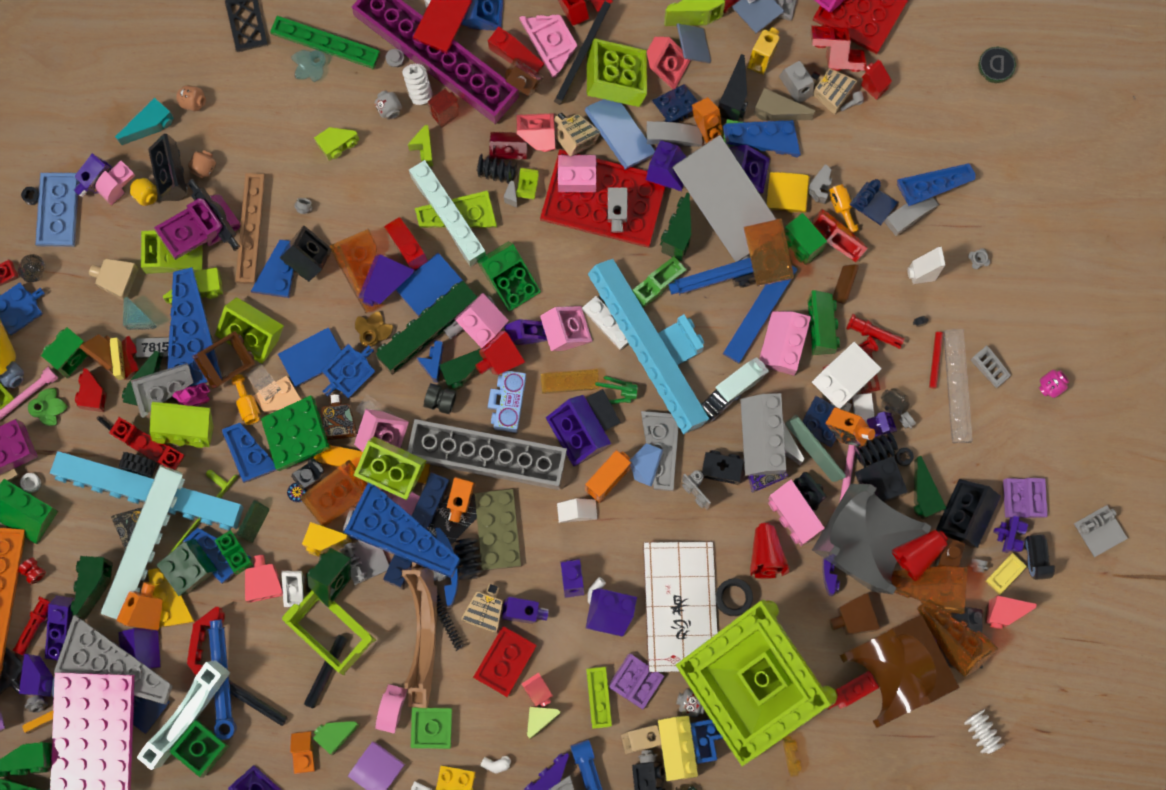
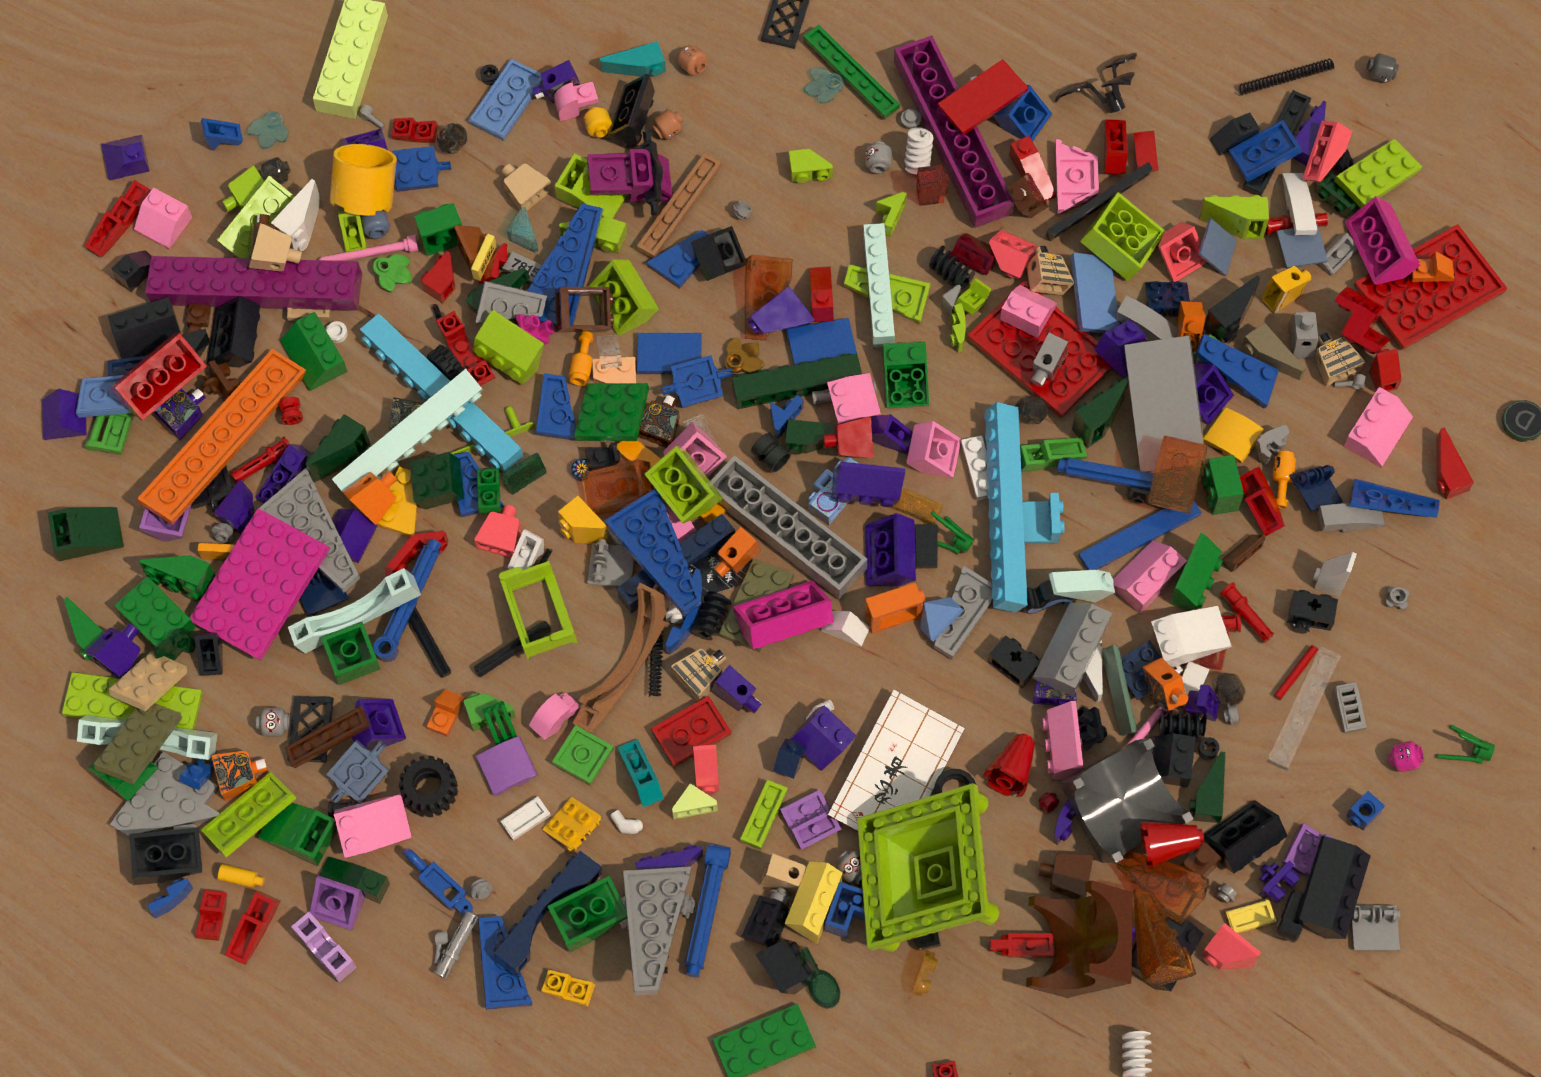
camera: 30 degrees right, 10 degrees down
(330, 576) = (568, 558): dark green slope -> none
(361, 747) = (505, 737): none -> green tile
(484, 717) = (640, 773): none -> teal slope
(525, 528) = (783, 614): none -> dark pink slope
(531, 220) = (958, 328): none -> lime slope
(534, 388) = (867, 484): none -> dark purple slope
(572, 578) = (803, 683): dark purple torso -> none
(594, 642) = (789, 758): none -> dark blue brick
(623, 254) = (1032, 409): none -> clear smoke head
(691, 484) = (976, 658): light grey hinge -> none
(808, 566) = (1048, 802): none -> dark red plate
(893, 128) = (1379, 428): none -> bright pink slope
(913, 309) = (1324, 609): none -> black brick
(964, 134) = (1451, 471): none -> red slope
(1051, 437) = (1371, 804): none -> blue brick
(1057, 519) = (1333, 888): none -> black slope
(1103, 347) = (1481, 748): none -> green plant

